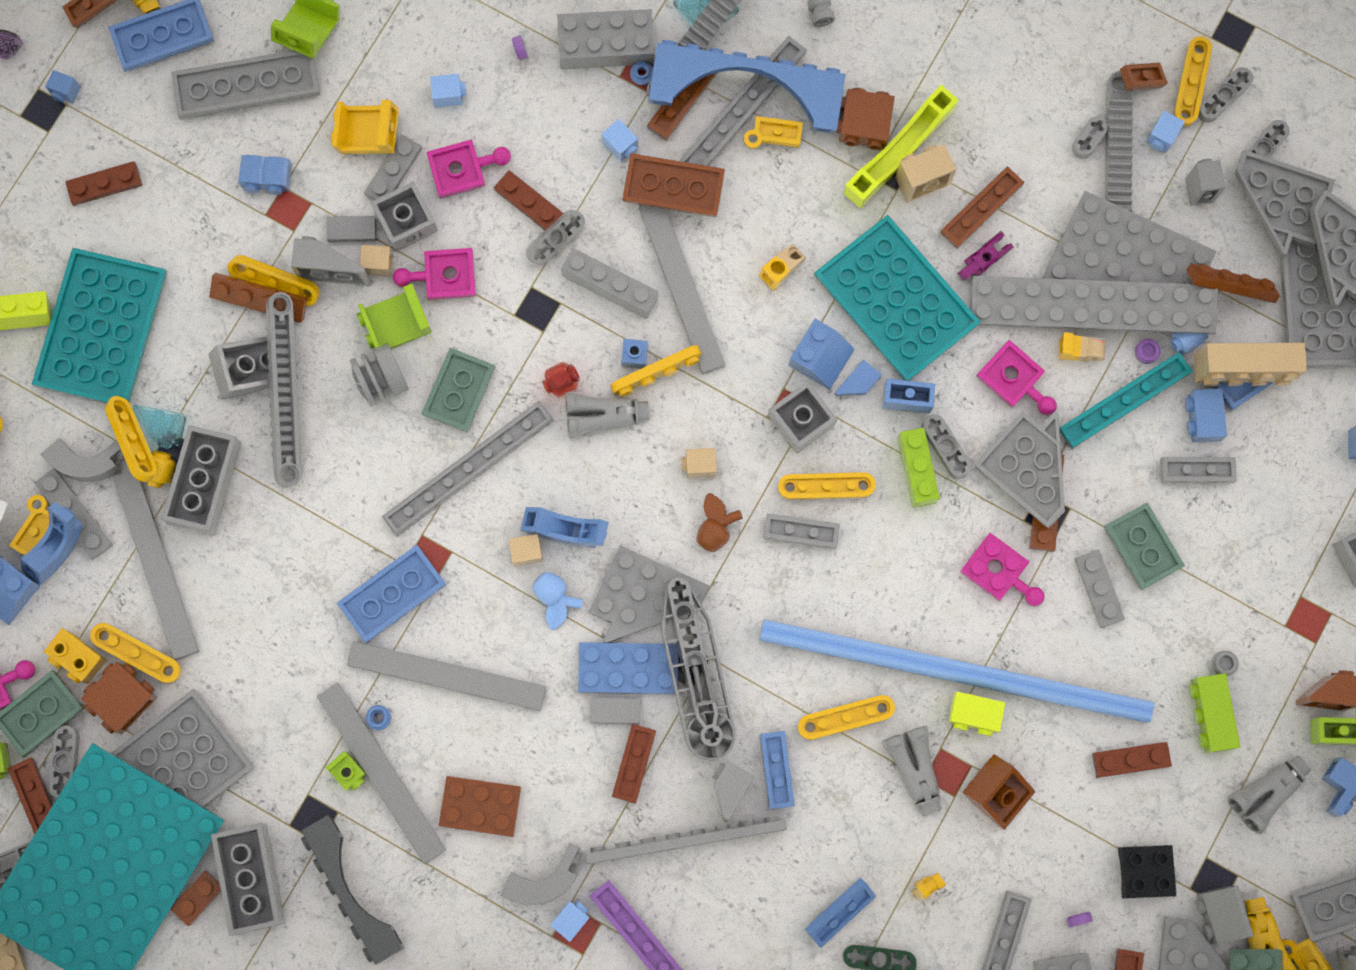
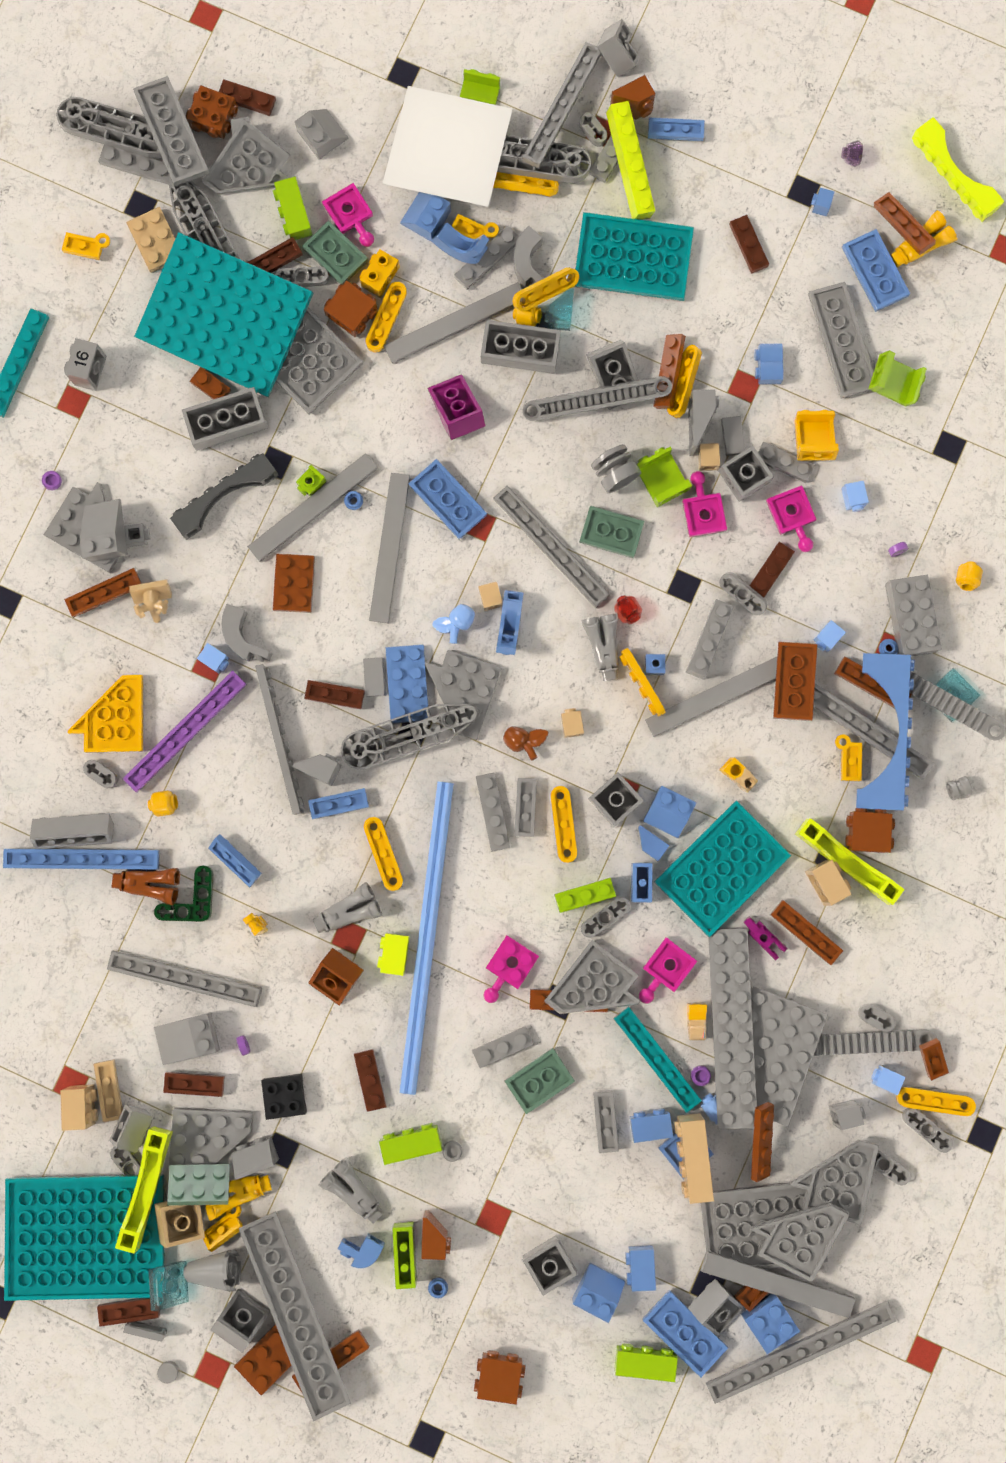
camera: 90 degrees right, 5 degrees up
(270, 570) = (457, 407): none -> magenta slope
(803, 574) = (492, 812): none -> light grey plate

